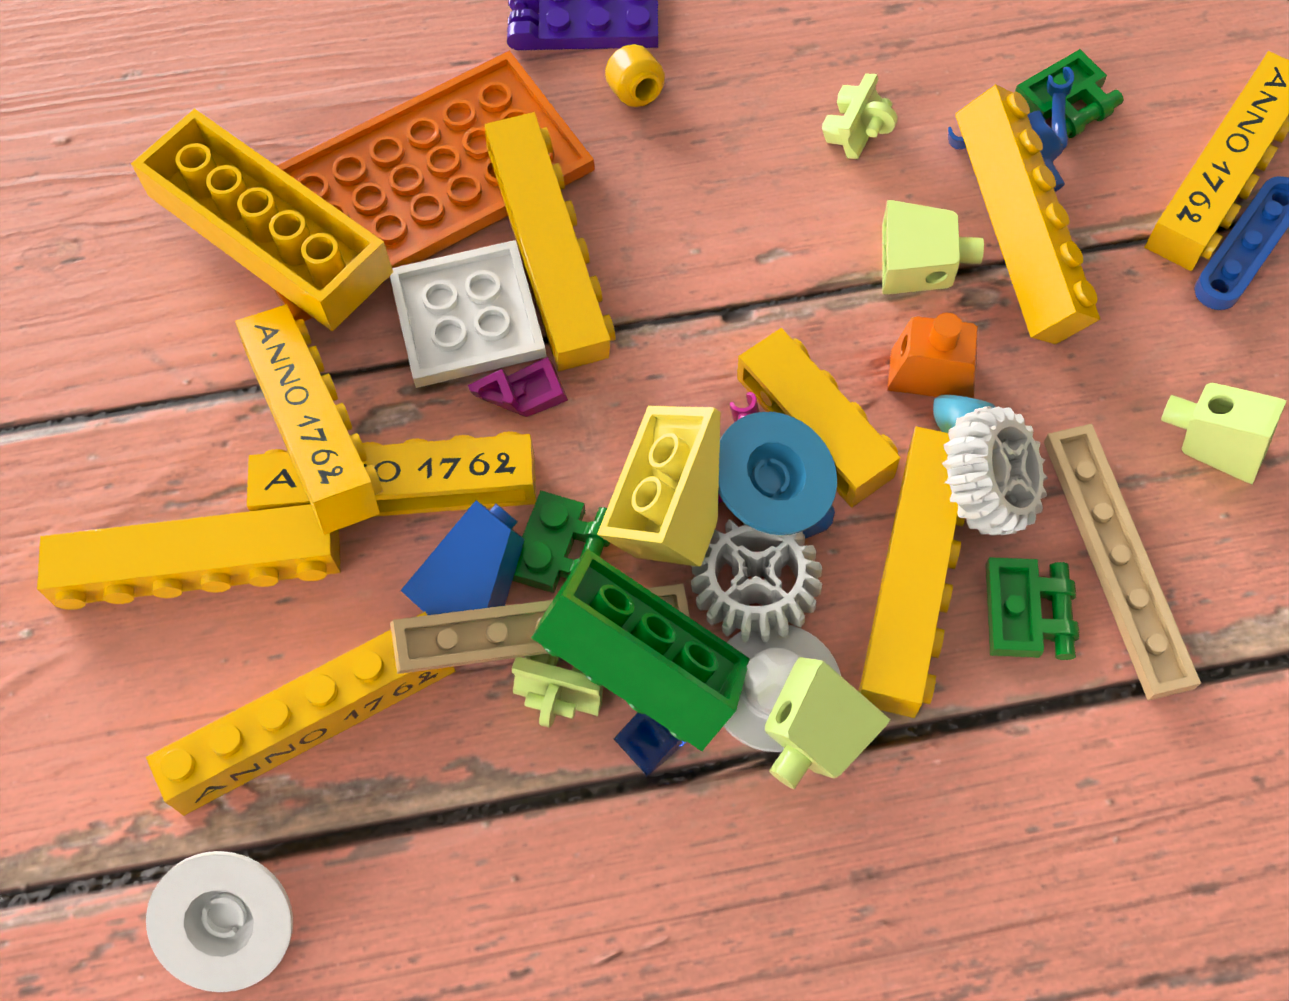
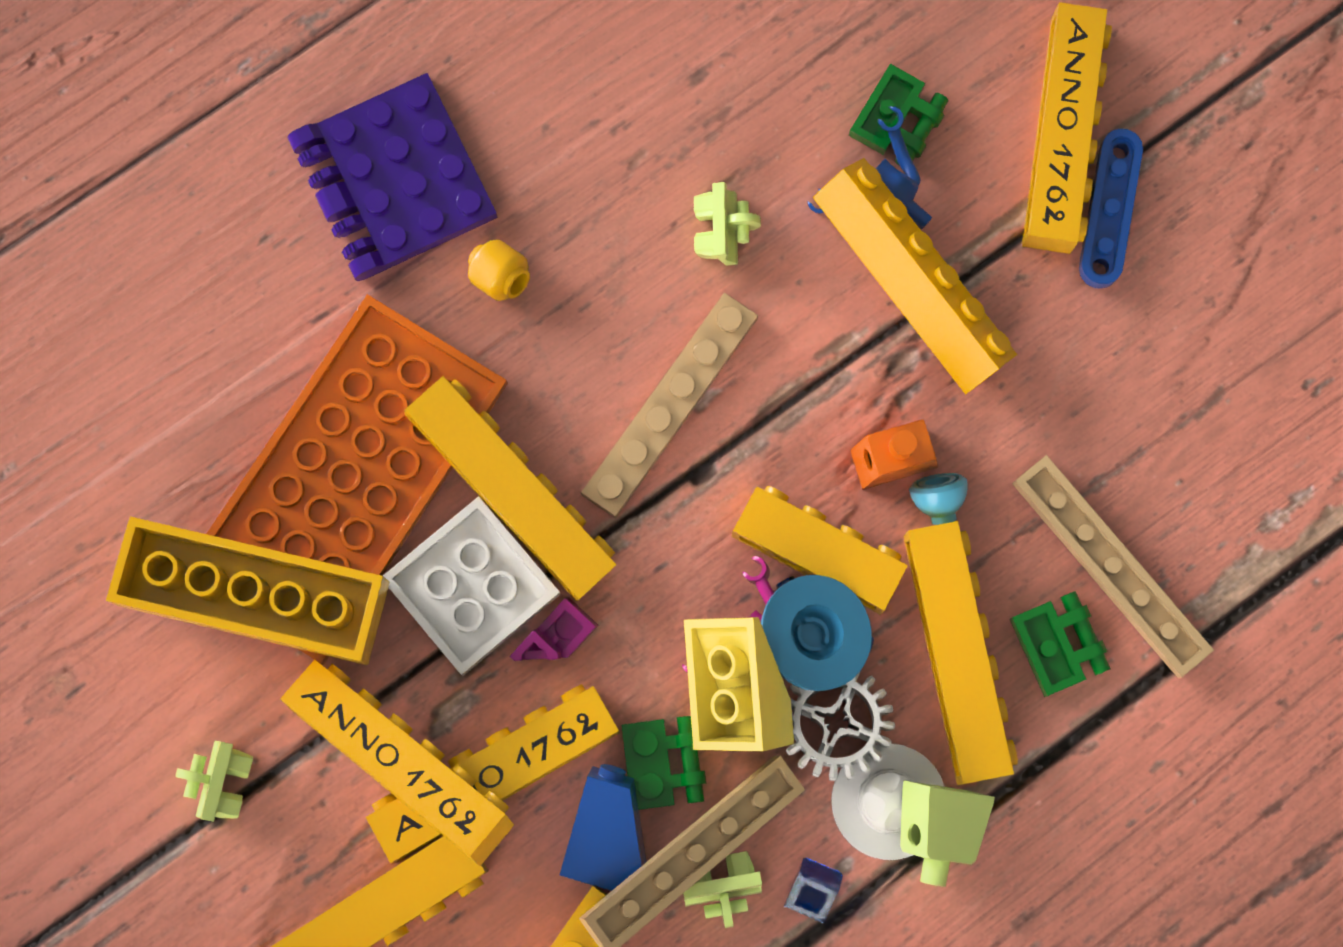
camera: 30 degrees left, 15 degrees up
(126, 388) = (213, 800): none -> yellowish green hips
(644, 651) = (782, 834): green slope -> none
(733, 244) = (669, 405): none -> tan plate
(923, 248) = (837, 341): yellowish green torso -> none
(995, 471) = (989, 544): white gear -> none
(1227, 427) = (1172, 410): yellowish green torso -> none

